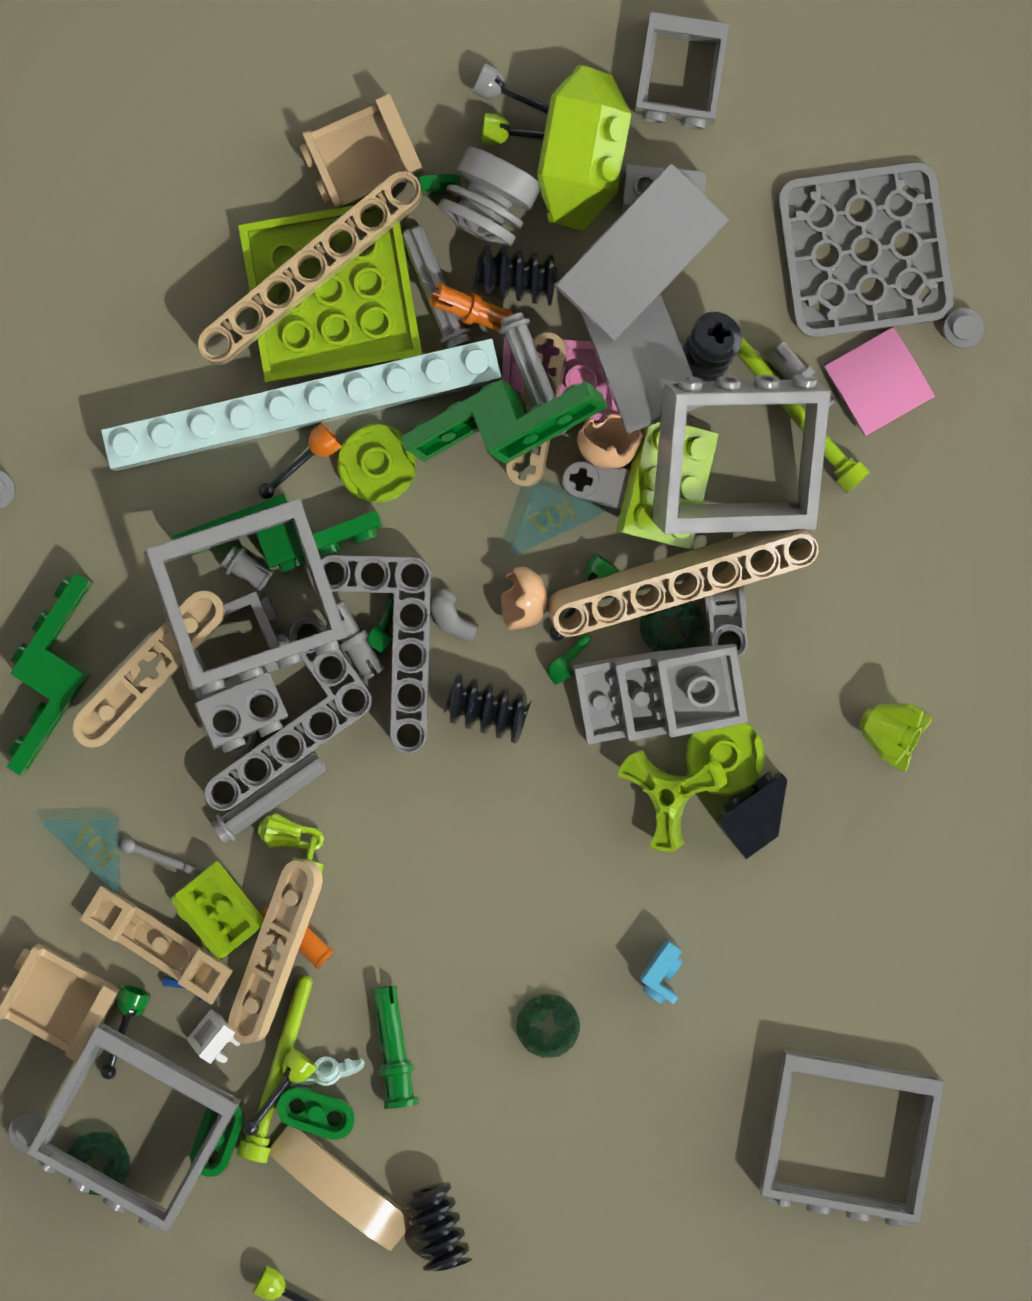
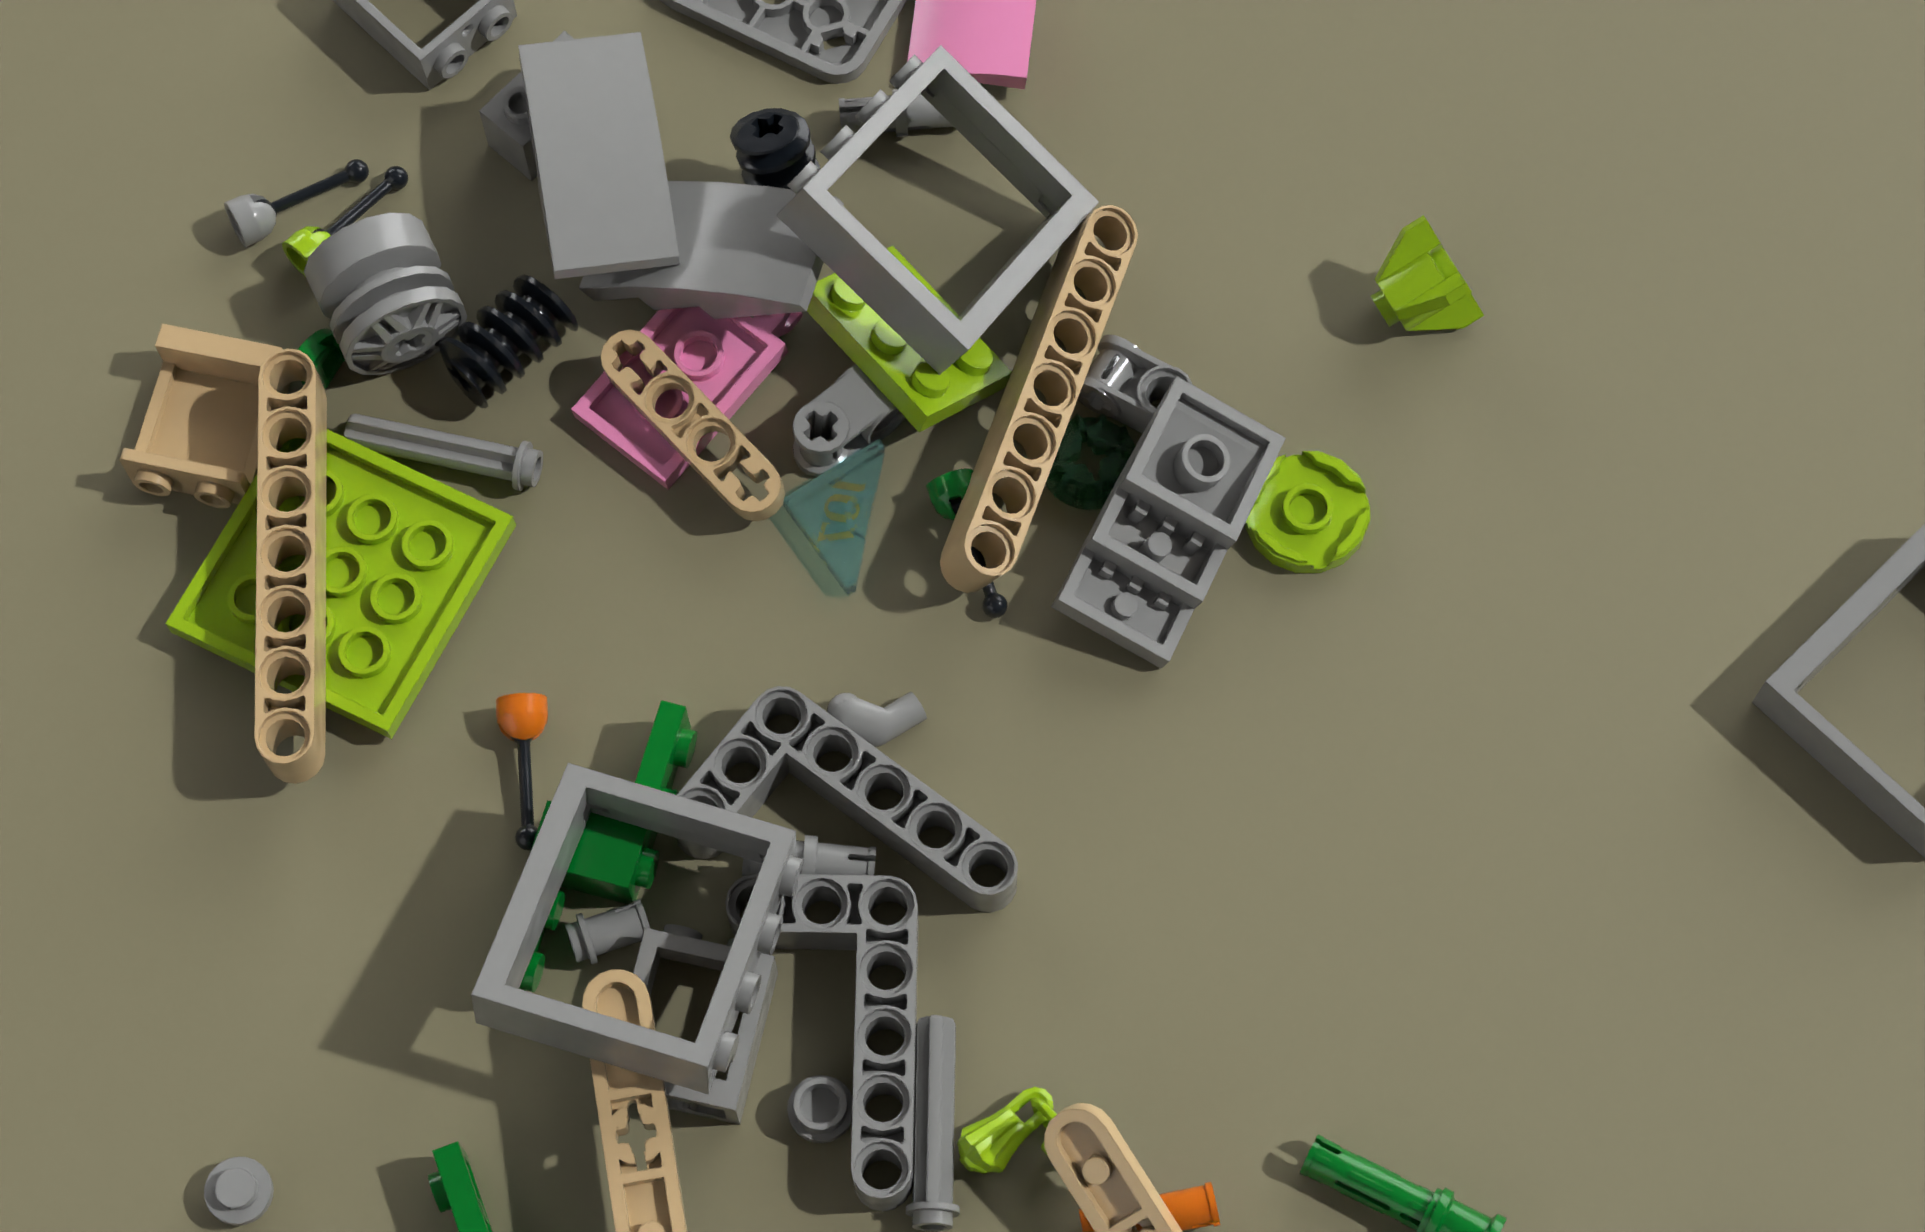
camera: 50 degrees left, 20 degrees down
(237, 703) = (779, 1061): light grey brick -> none
(301, 405) = (450, 714): light aqua brick -> none
(376, 463) = (604, 675): lime tile -> none
(378, 638) = (829, 827): green hand -> none
(468, 307) = (502, 417): orange pin -> none
(487, 708) = (1025, 748): black piece -> none
(504, 421) = (673, 455): green bracket -> none
(526, 601) = (922, 605): light nougat hair -> none
(527, 358) = (642, 386): light grey axle -> none
(559, 669) = (1044, 632): green hand -> none
(563, 1015) = (1518, 1004): clear green gear -> none
(583, 147) = (426, 157): lime wedge -> none
(607, 442) = (801, 359): light nougat hair -> none
(662, 965) = (1534, 771): medium azure bracket -> none
(670, 794) = (1311, 598): lime piece -> none
(756, 818) = (1418, 519): black slope -> none
(847, 470) = (1054, 133): lime piece -> none

